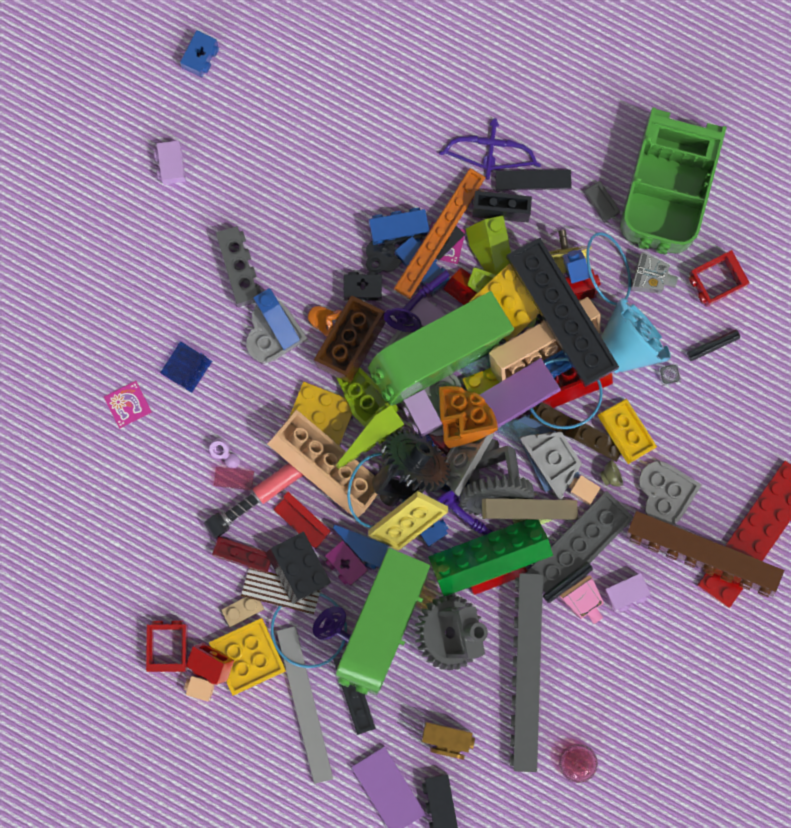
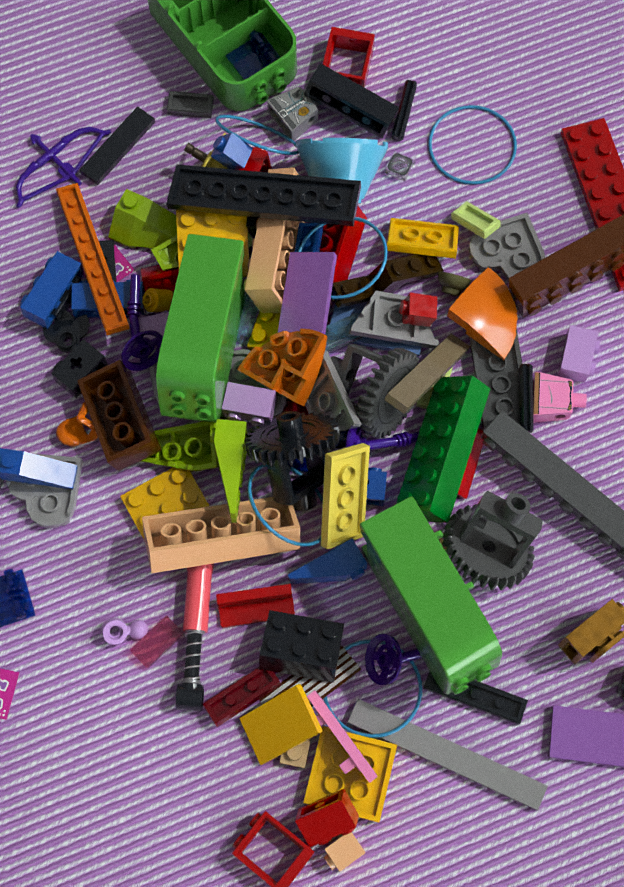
camera: 50 degrees left, 10 degrees down
(241, 593) = (280, 724): none -> yellow tile
(264, 631) = (356, 758): none -> bright pink hinge
(343, 552) = (348, 591): magenta brick -> none
(446, 299) = (157, 300): none -> yellow brick
(509, 206) = (105, 193): black brick -> none
(570, 469) = (419, 309): none -> red brick
(584, 489) = (443, 324): light nougat brick -> none
(607, 514) = (487, 313): none -> orange brick
(668, 218) = (253, 55): none -> hinge
(668, 455) = (475, 220): none -> yellowish green tile
(687, 307) = (351, 100): none -> black brick
(741, 377) = (472, 107): none -> dark azure piece

